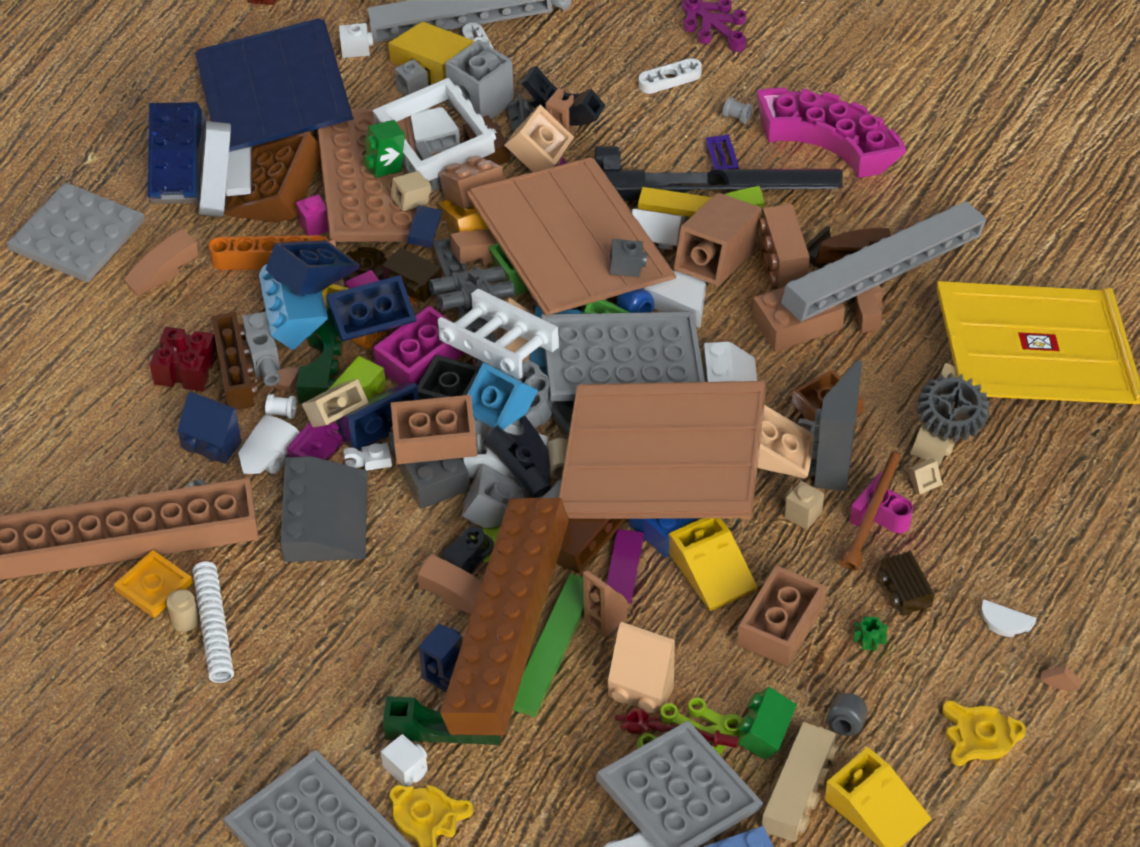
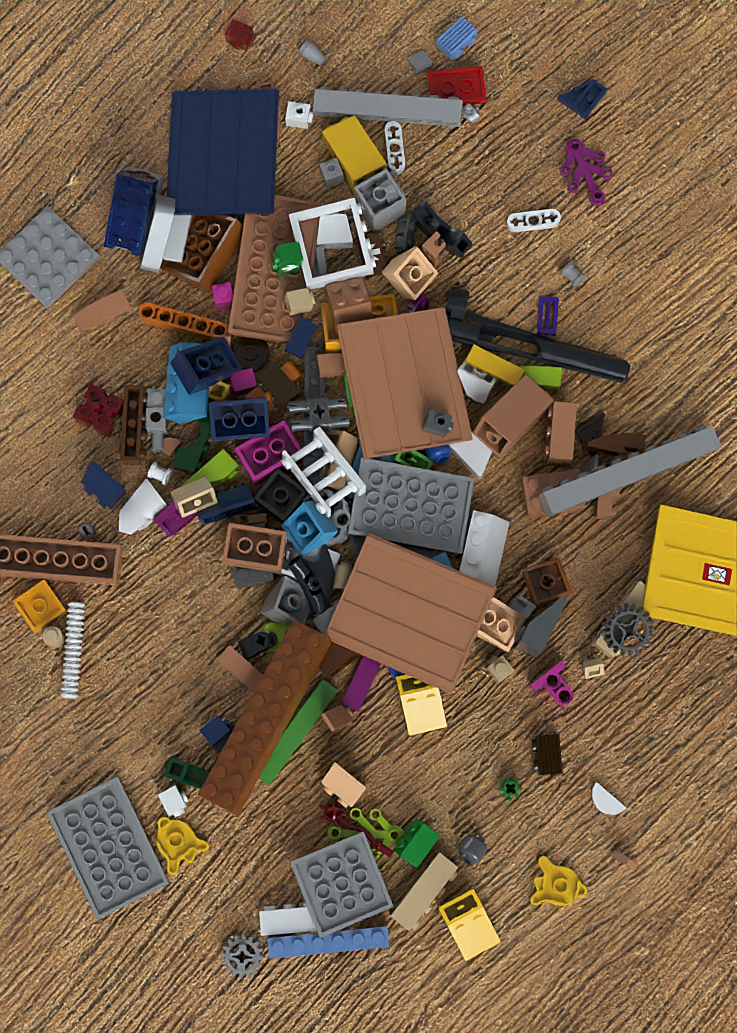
camera: 15 degrees right, 30 degrees up
(323, 511) = (168, 576): dark grey slope -> none
(372, 457) = (214, 537): white plate -> none
(781, 615) = (454, 760): nougat brick -> none
(830, 124) = (641, 312): dark pink brick -> none
(851, 557) = (519, 721): dark orange piece -> none

